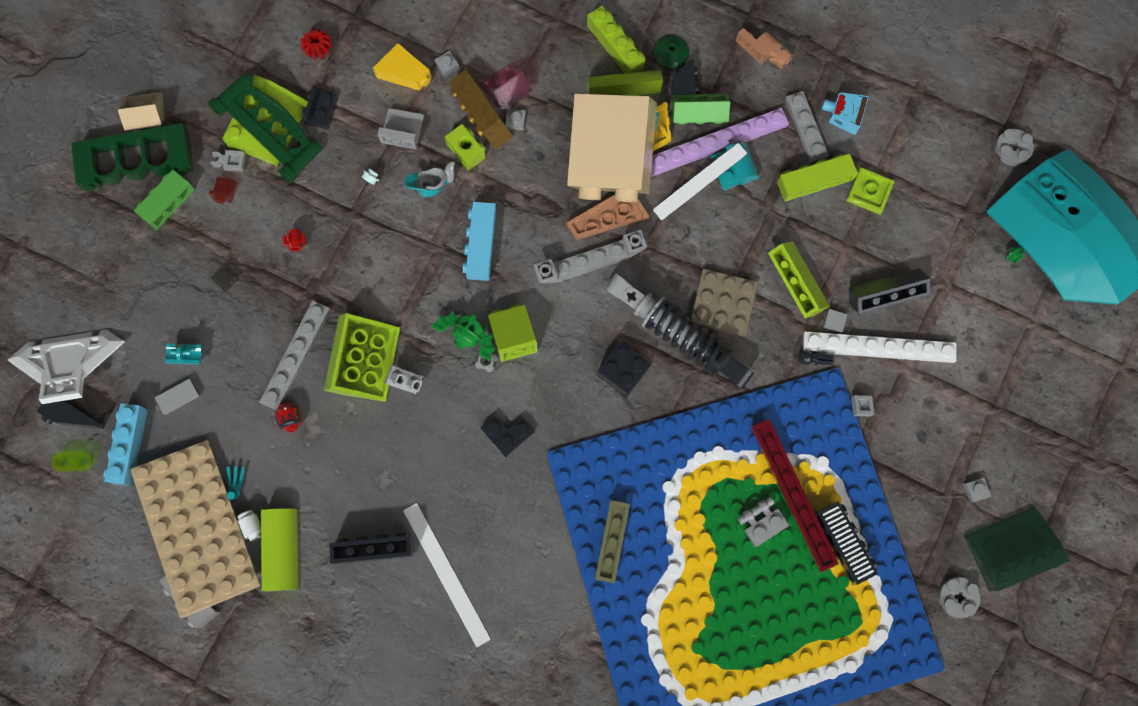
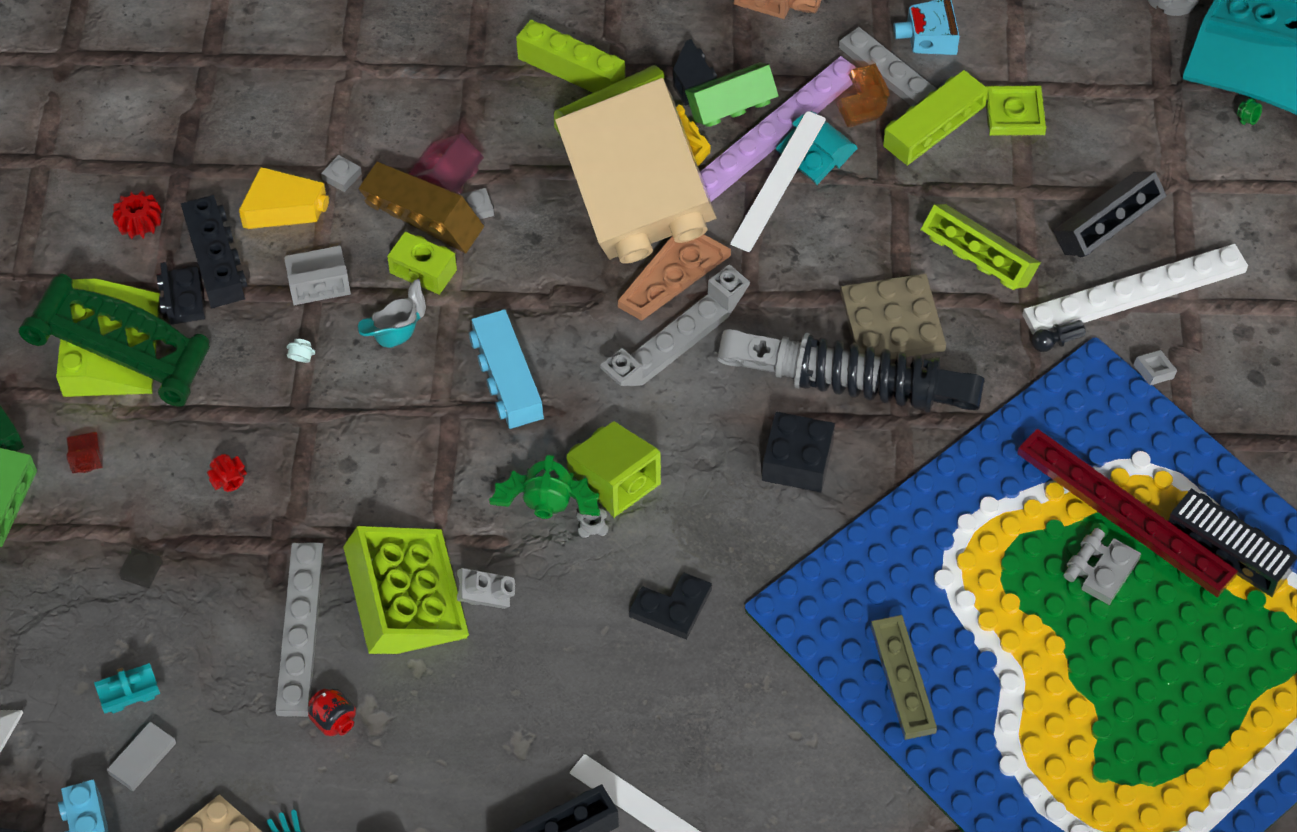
camera: 20 degrees left, 20 degrees down
(231, 160) = (79, 408): light grey plate -> none
(349, 87) = (213, 252): none -> black brick
(671, 59) = (652, 47): dark green dish -> none
(786, 145) = (871, 96): none -> clear orange plate
(835, 321) = (1057, 281): light grey tile -> none

